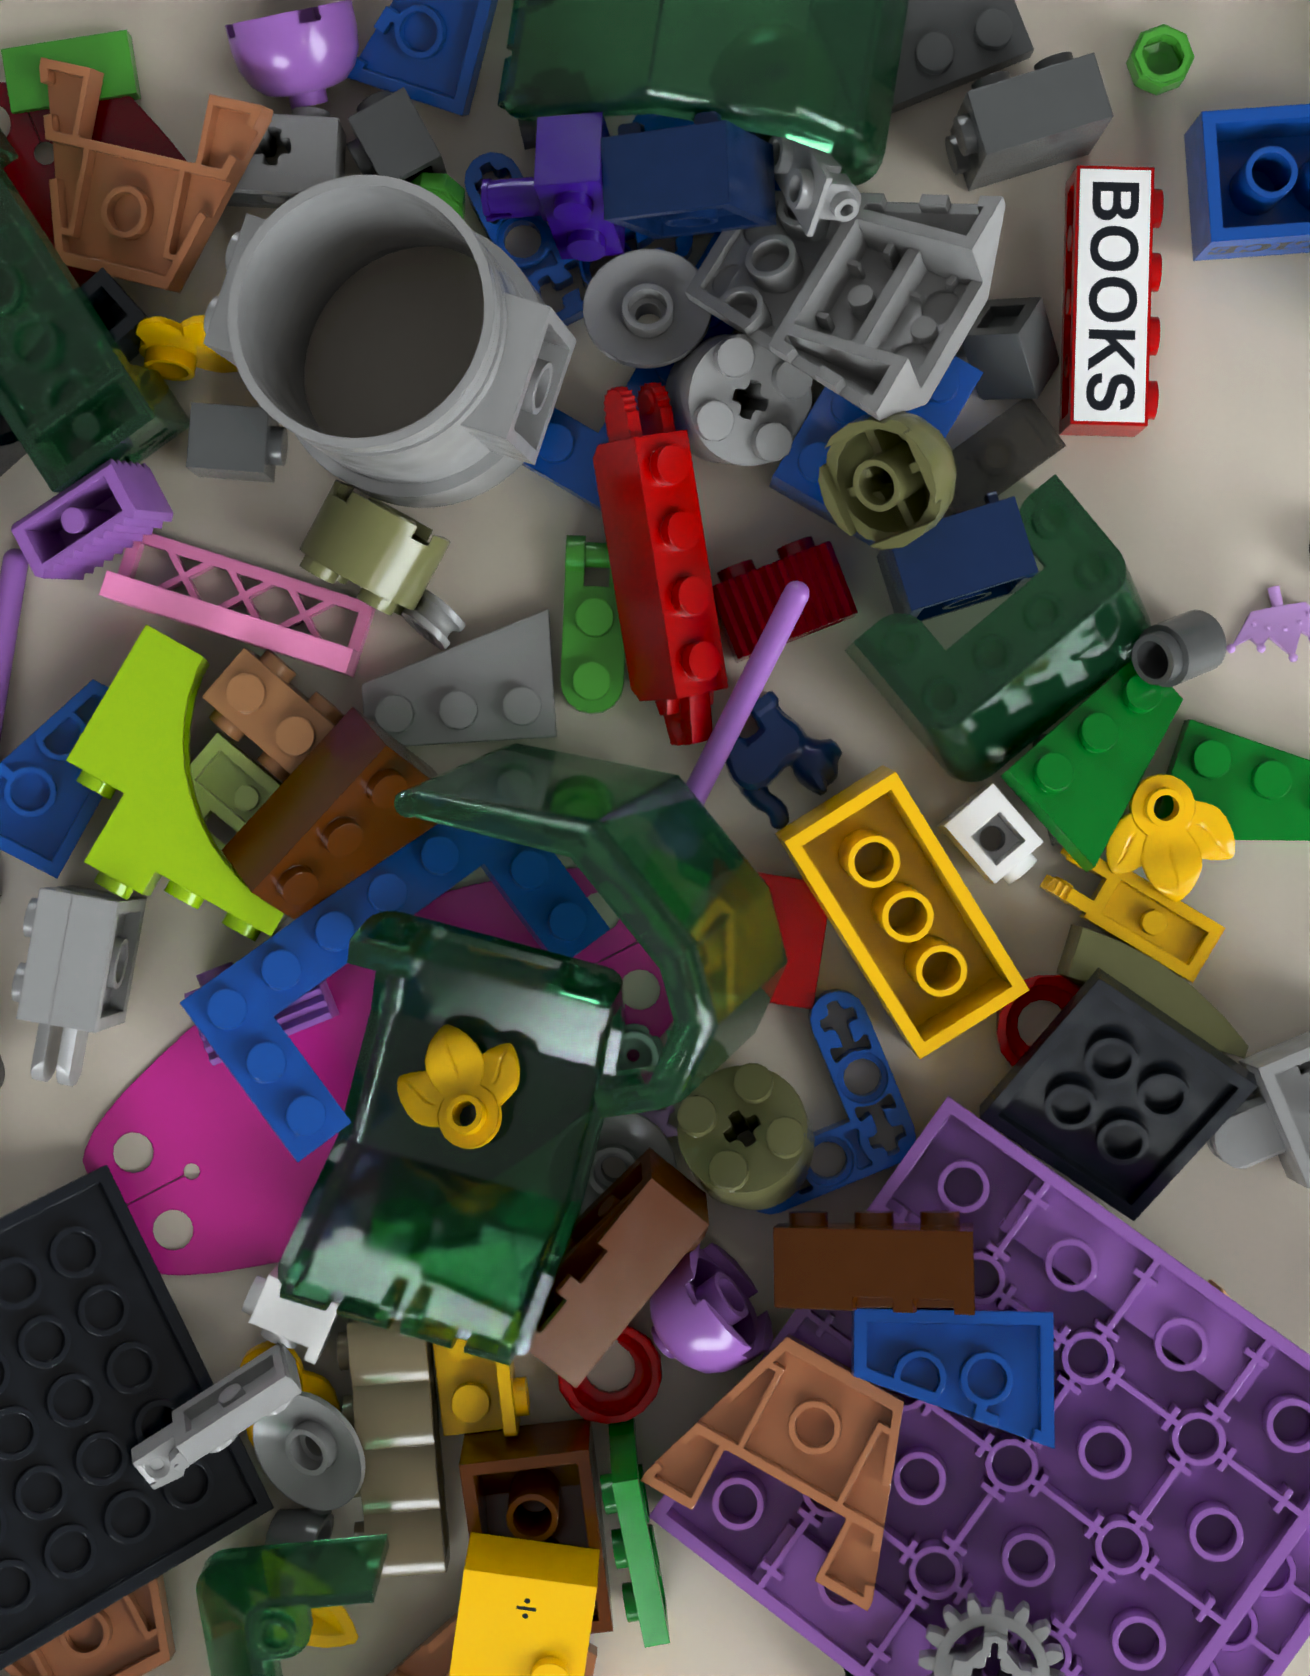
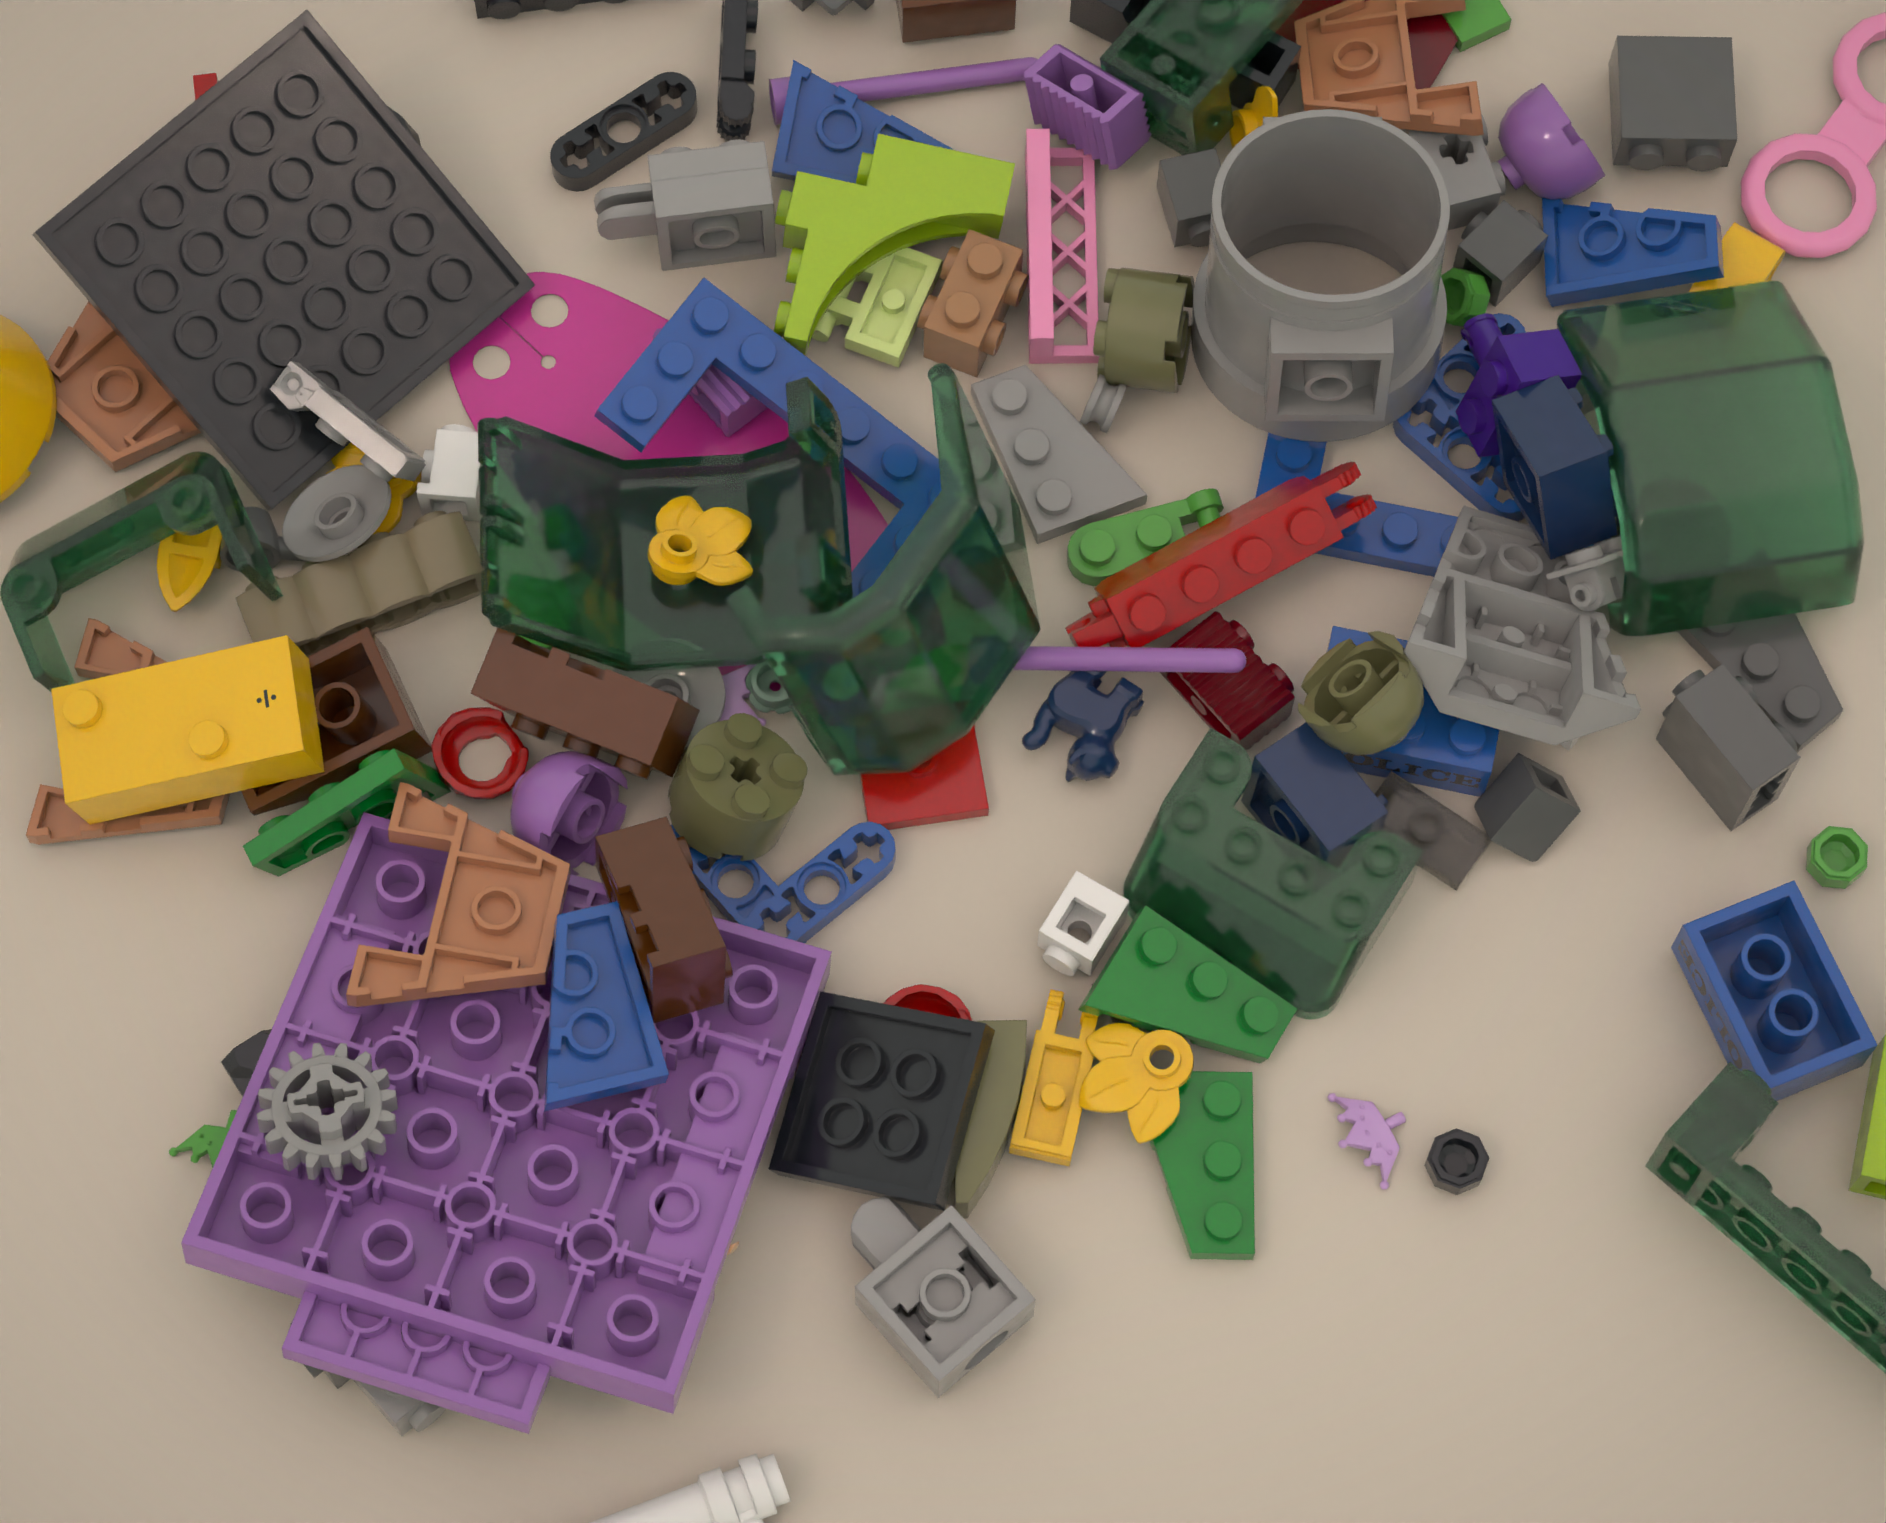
camera: 70 degrees right, 20 degrees down
(330, 818) = (886, 353): reddish brown wedge -> none
(478, 1393) = (439, 645): yellow bracket -> none
(641, 285) = (1440, 466): light grey dish -> none
(722, 430) = (1362, 557): light grey brick -> none
(902, 911) = (985, 860): yellow brick -> none
(1109, 301) = (1600, 877): brick -> none
(1179, 649) = (1311, 1033): dark grey brick -> none

